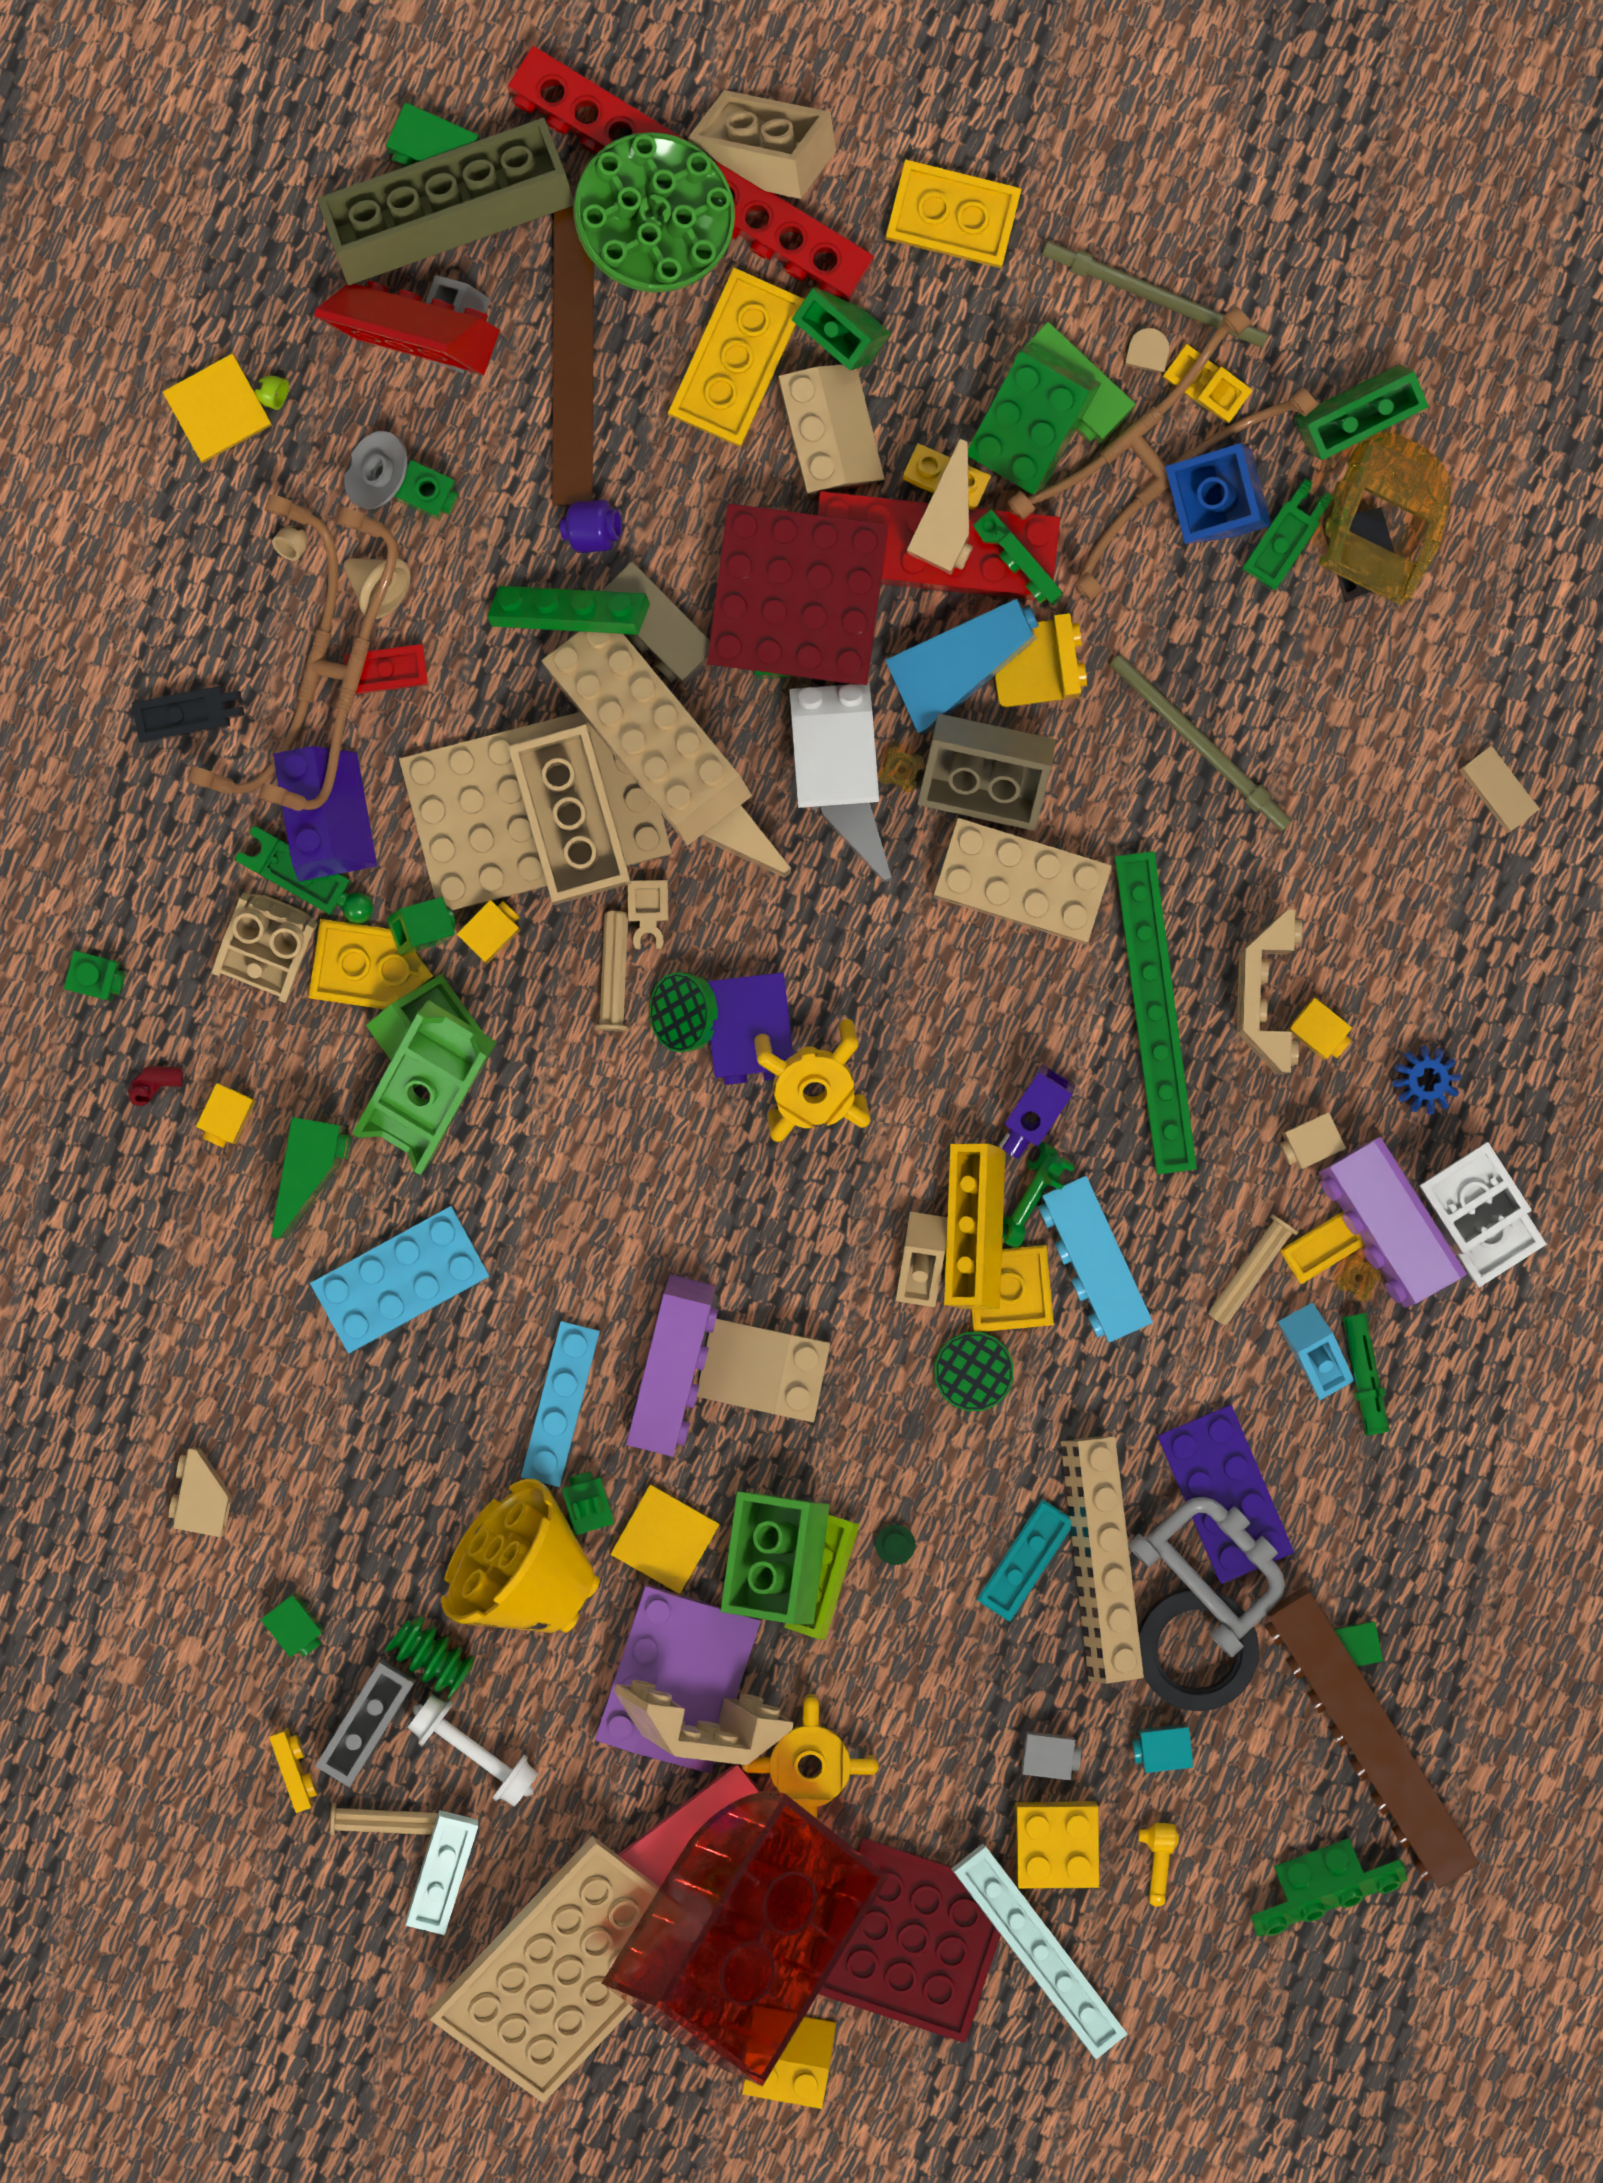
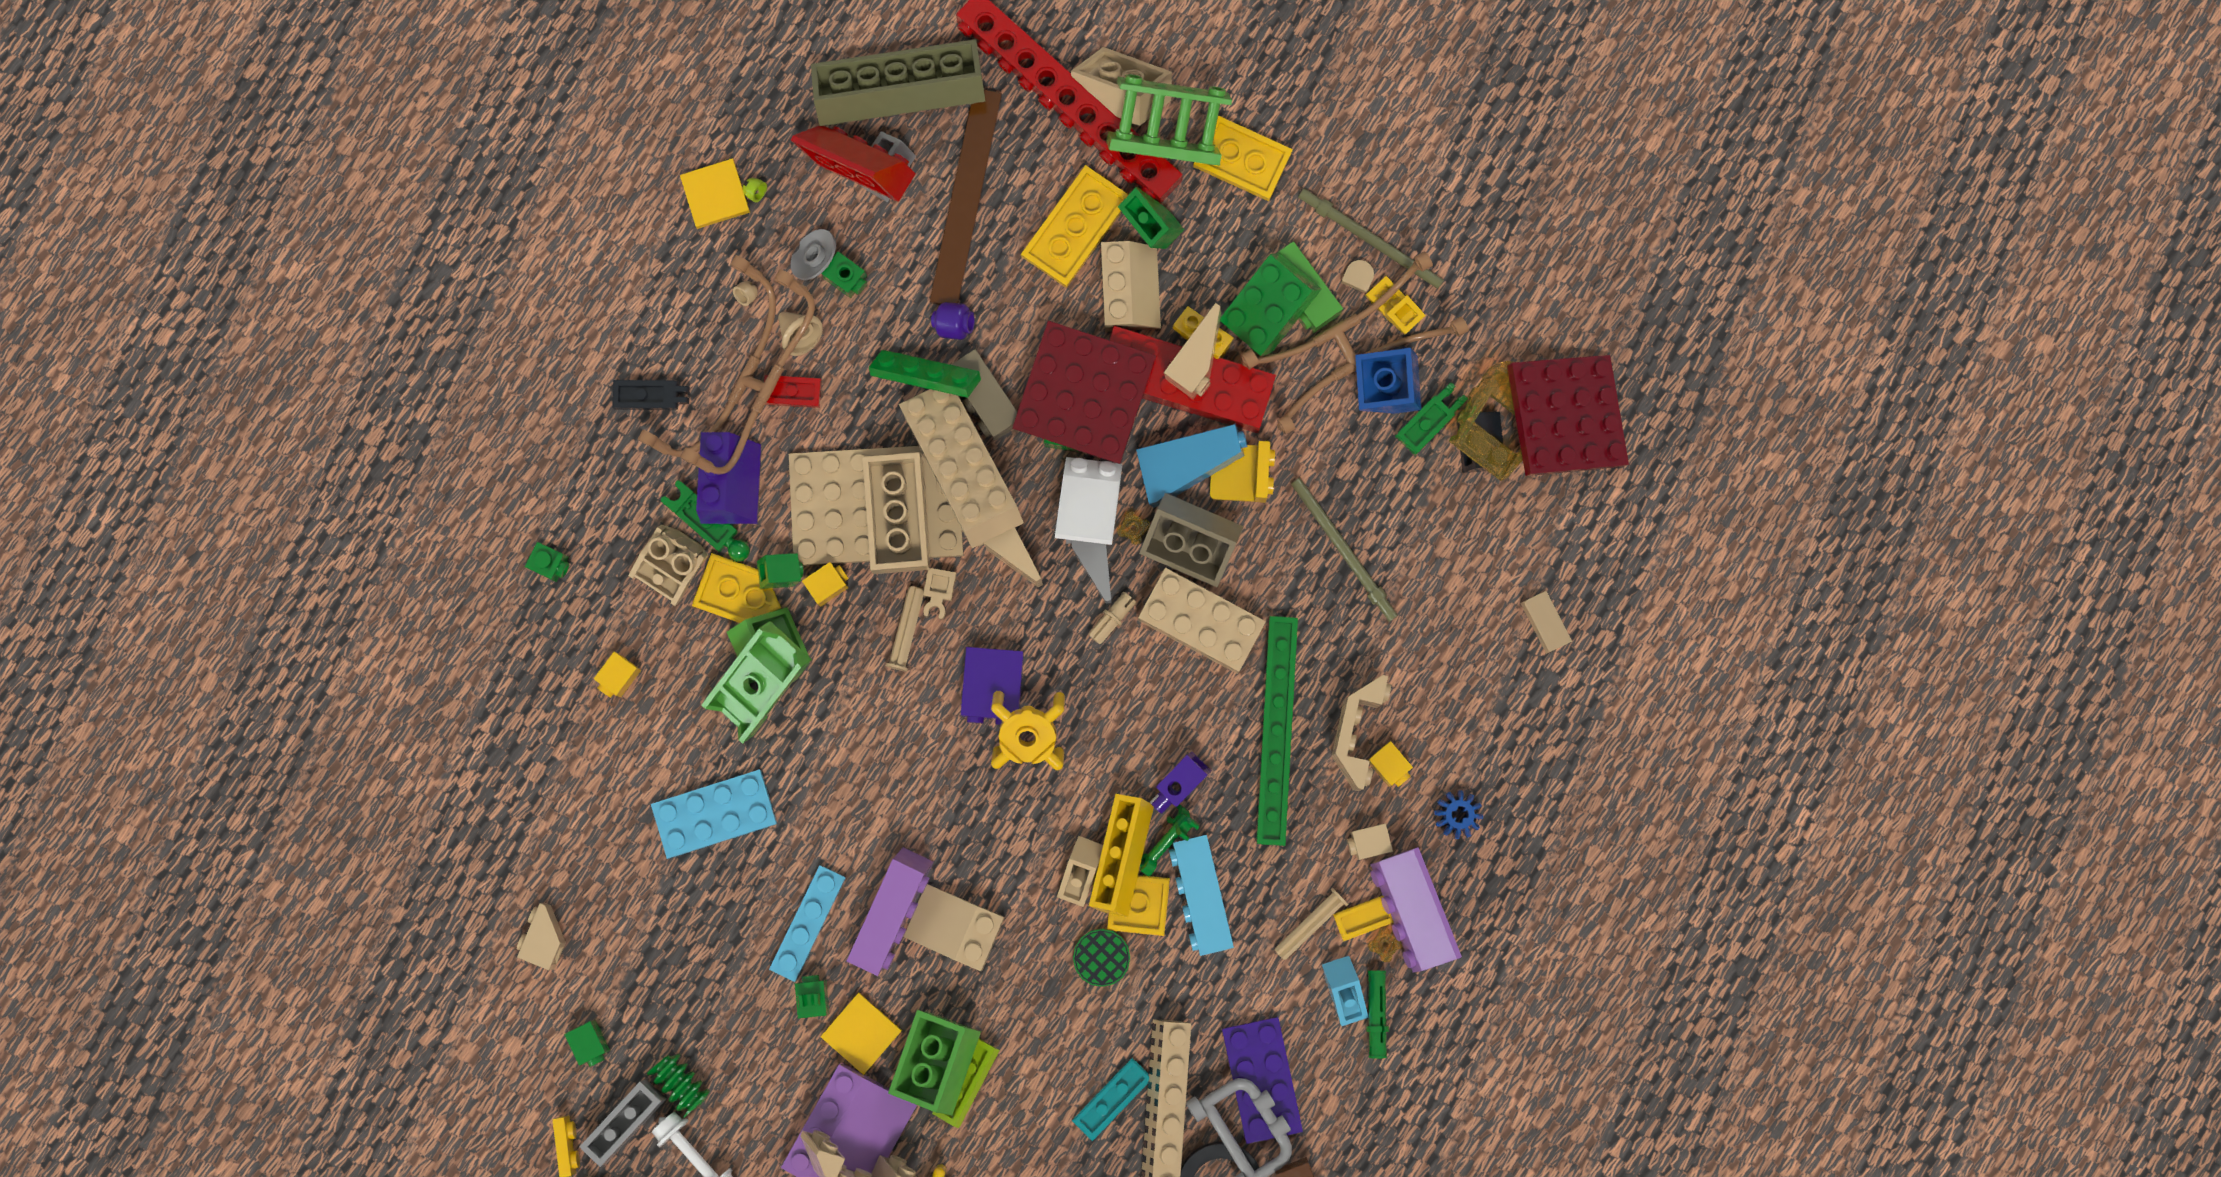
camera: 20 degrees right, 5 degrees down
(151, 1080) = (570, 642): dark red arm -> none
(309, 1163) = (665, 721): green slope -> none
(423, 136) = (892, 36): green slope -> none
(519, 1566) = (753, 1034): yellow cone -> none
(654, 212) = (1037, 114): bright green bracket -> none
(683, 1012) = (948, 665): tile -> none
(861, 220) = (1178, 146): none -> bright green fence
(895, 1544) = (1022, 1069): dark green plate -> none
(896, 901) = (1112, 618): none -> tan axle
(994, 531) = (1240, 395): green hinge -> none
(1361, 411) = (1497, 343): green brick -> none
(1476, 494) = (1567, 415): none -> dark red plate
(1482, 1214) = (1480, 917): white bracket -> none

